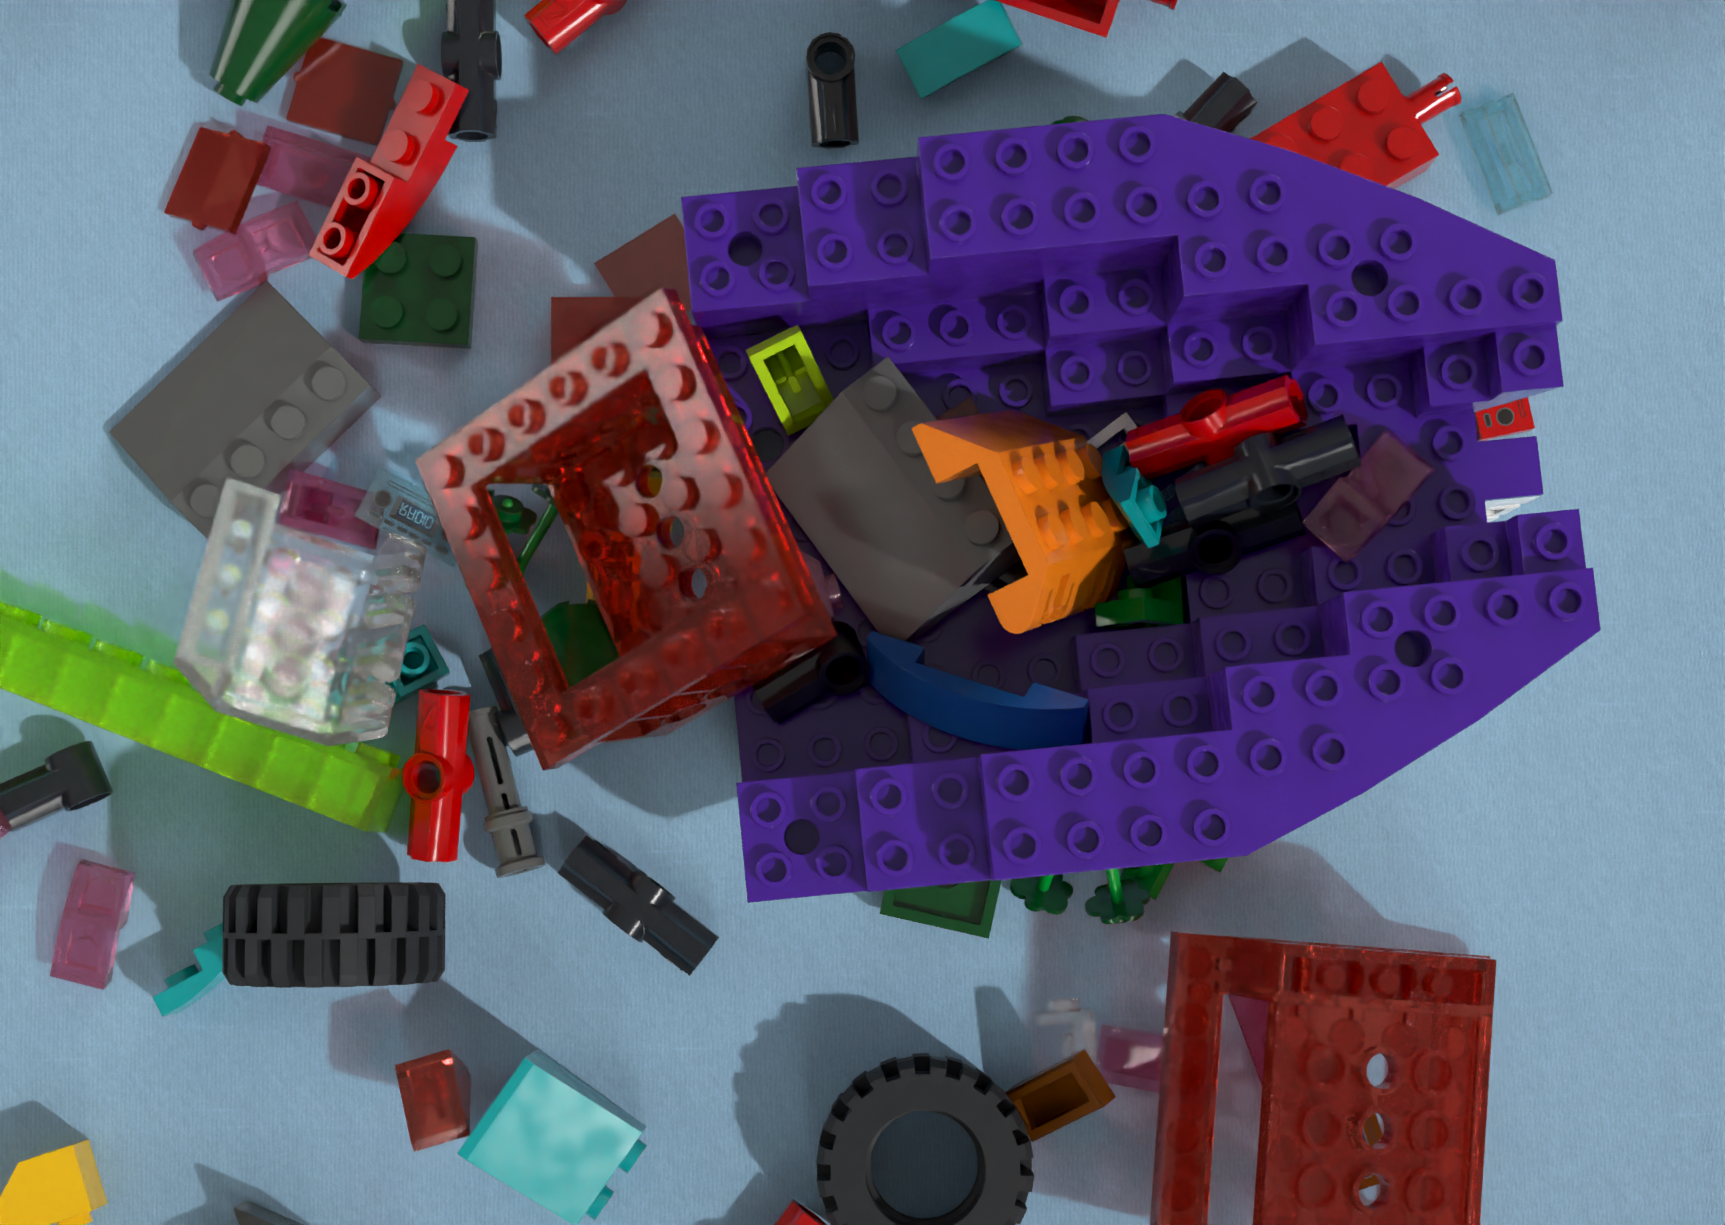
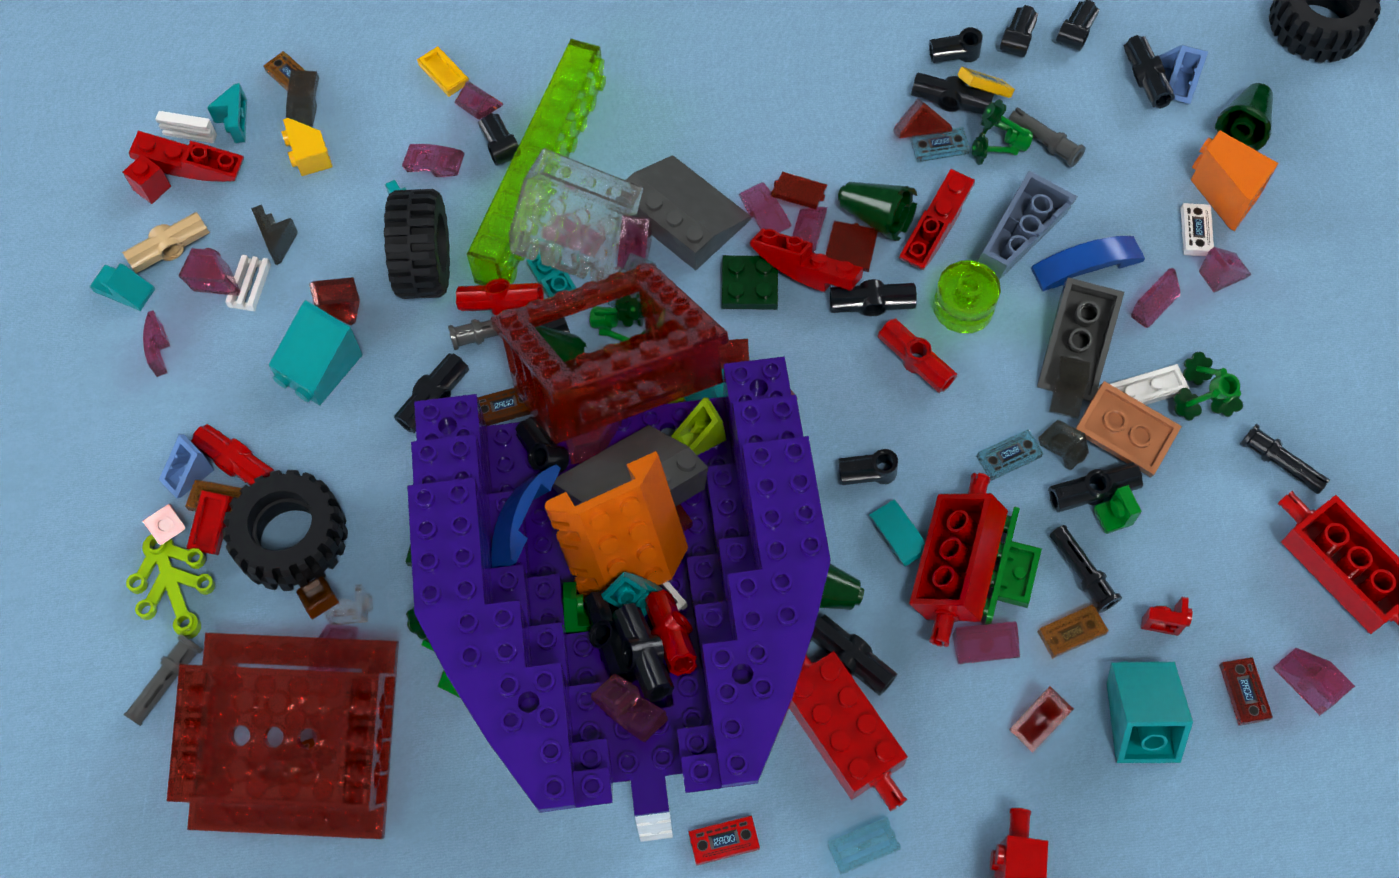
camera: 90 degrees right, 20 degrees down
(670, 777) = (502, 406): none -> reddish brown tile

